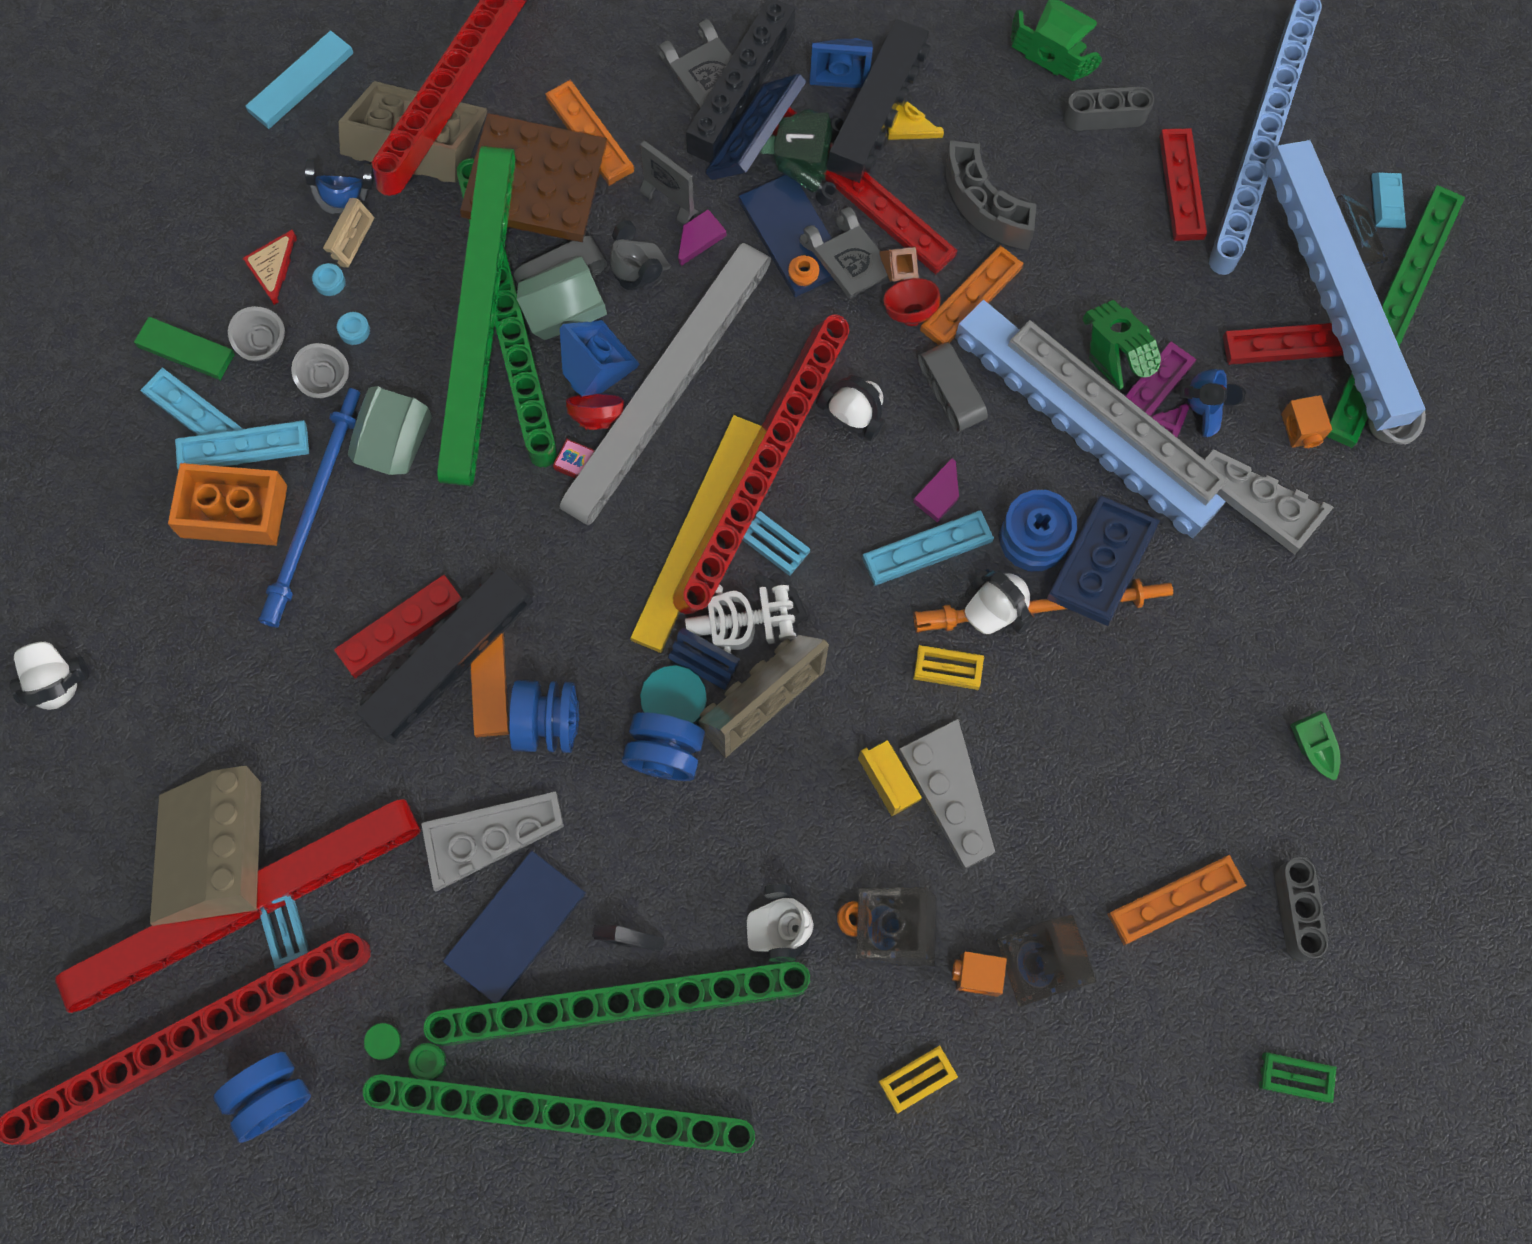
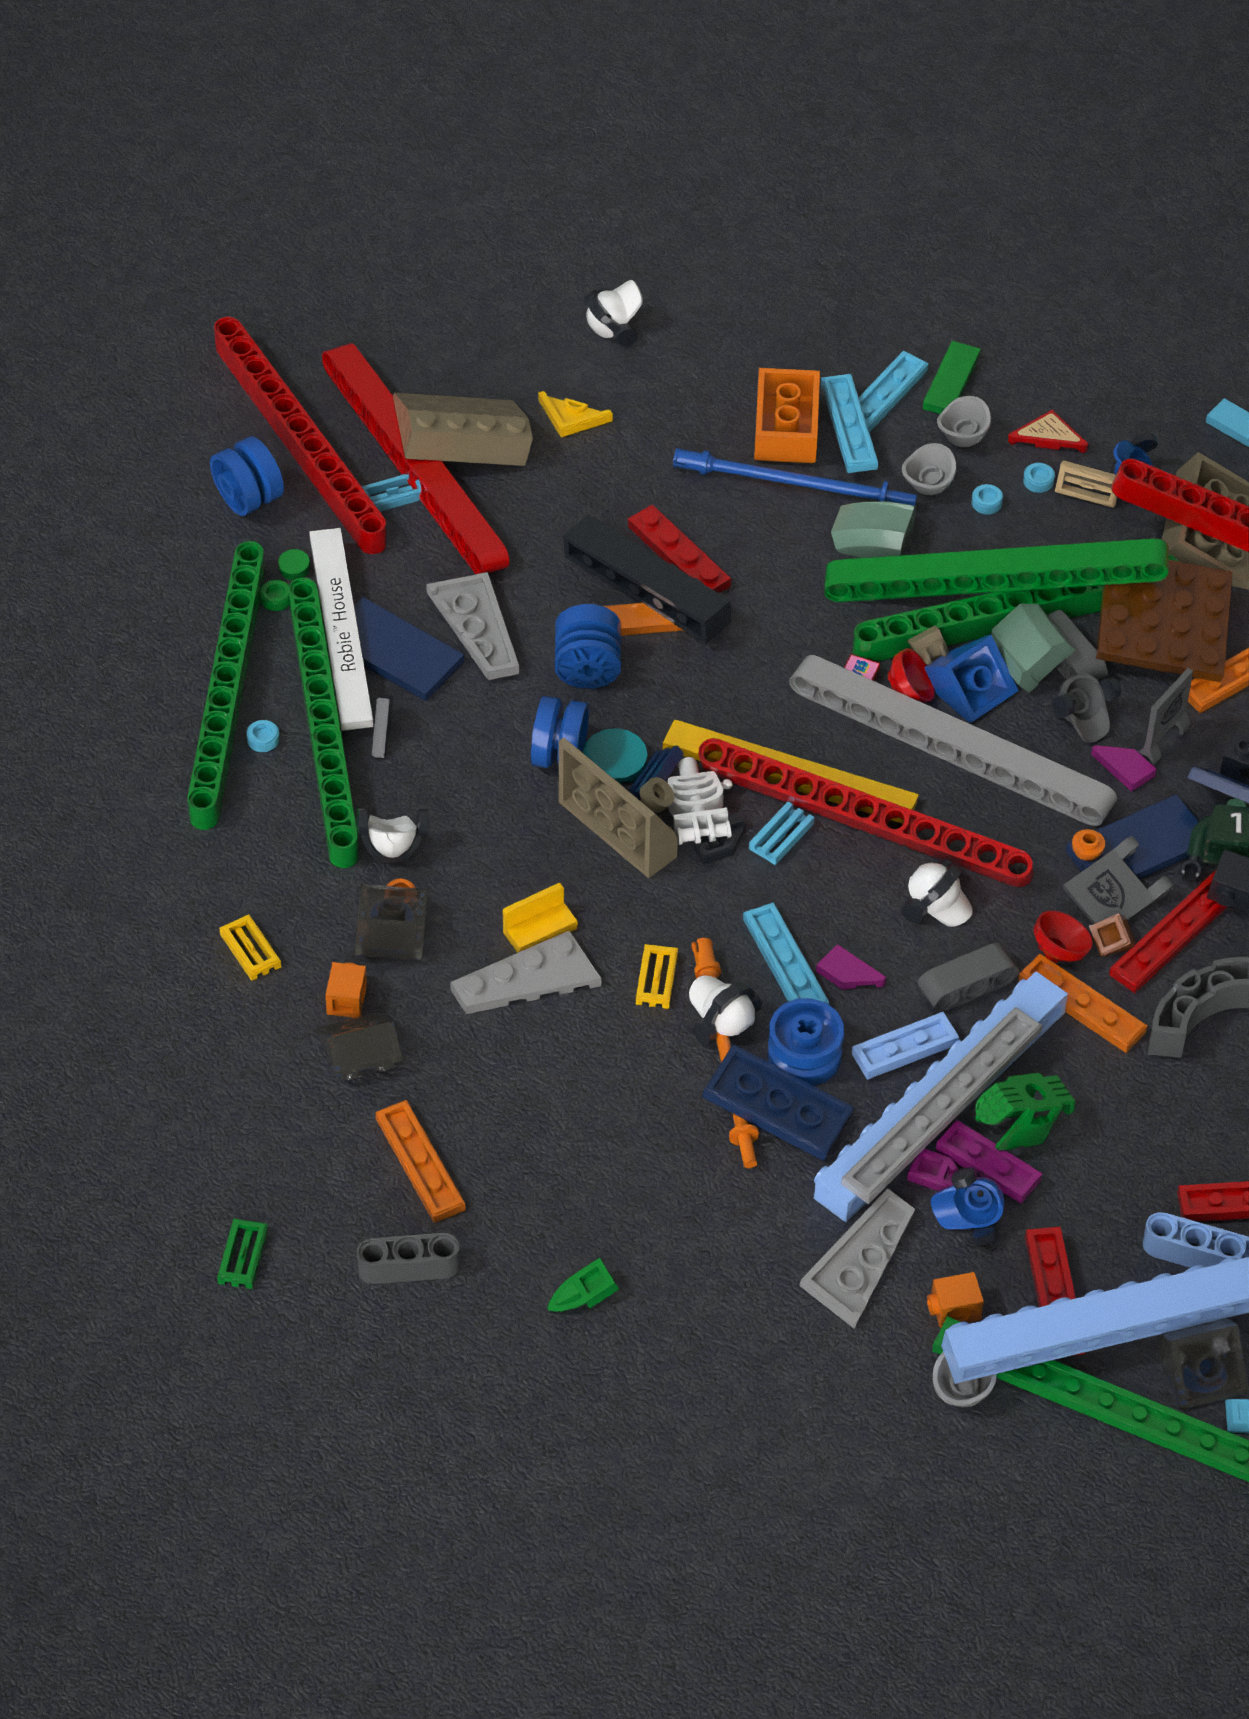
camera: 90 degrees right, 20 degrees down
(189, 732) = (572, 416): none -> yellow tile
(489, 984) = (341, 629): none -> white tile
(556, 389) = (929, 645): none -> dark tan tile
(630, 1072) = (263, 736): none -> medium azure tile
(746, 653) = (656, 794): none -> dark tan tile
(1030, 446) = (904, 1045): none -> light blue plate

